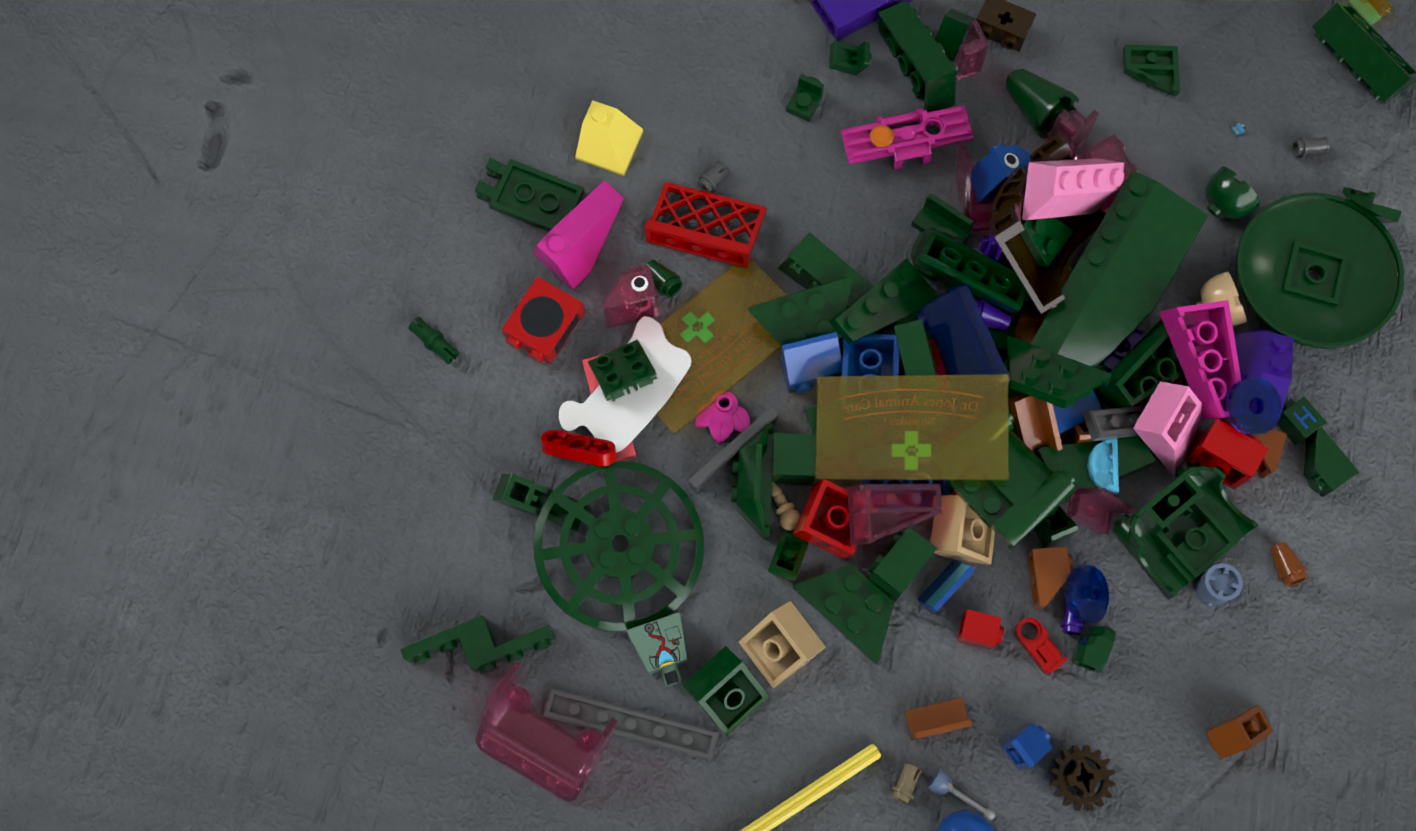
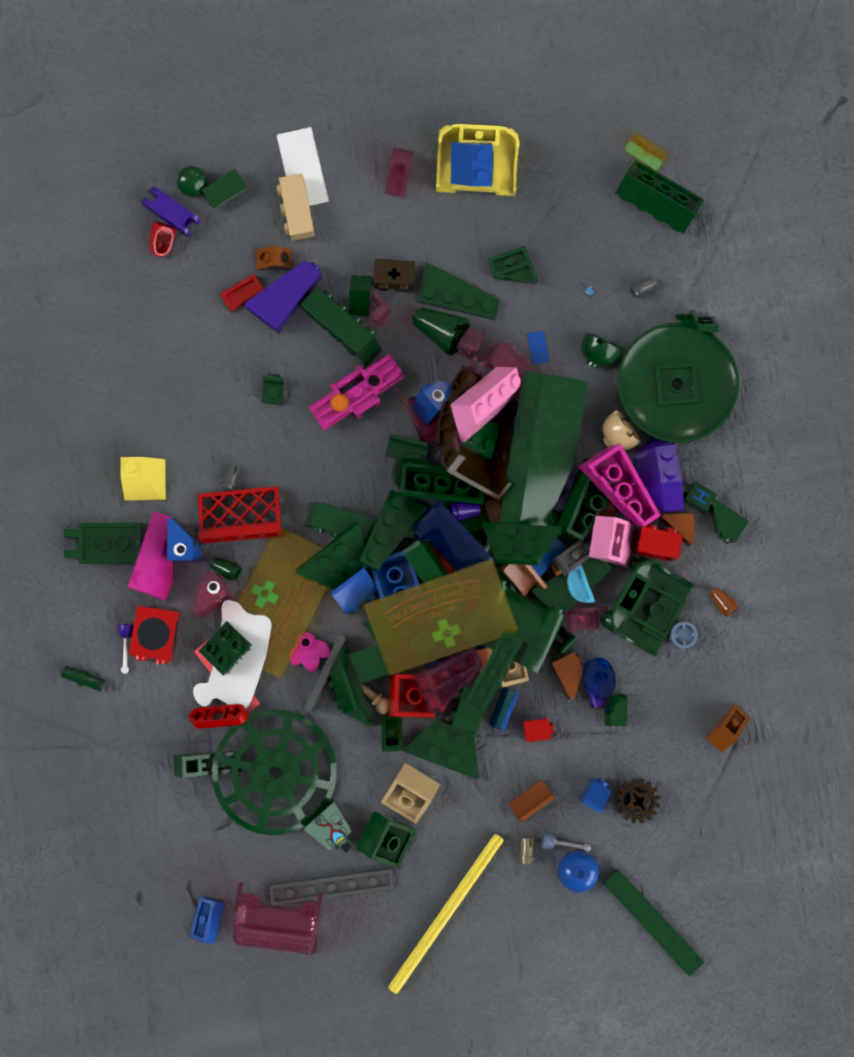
camera: 30 degrees left, 10 degrees up
(454, 700) = (207, 920): none -> blue slope
(478, 645) = (208, 878): dark green bracket -> none
(508, 304) = (125, 632): none -> hinge
(620, 227) = (181, 545): none -> blue slope
(849, 58) = (292, 345): dark green bracket -> none
(958, 517) = (493, 673): none -> dark green window
(1040, 648) = (581, 724): red piece -> none
(1062, 65) = (451, 293): none -> dark green wing
(1151, 164) = (538, 347): none -> blue sticker
(1267, 403) = (673, 506): clear blue tile -> none

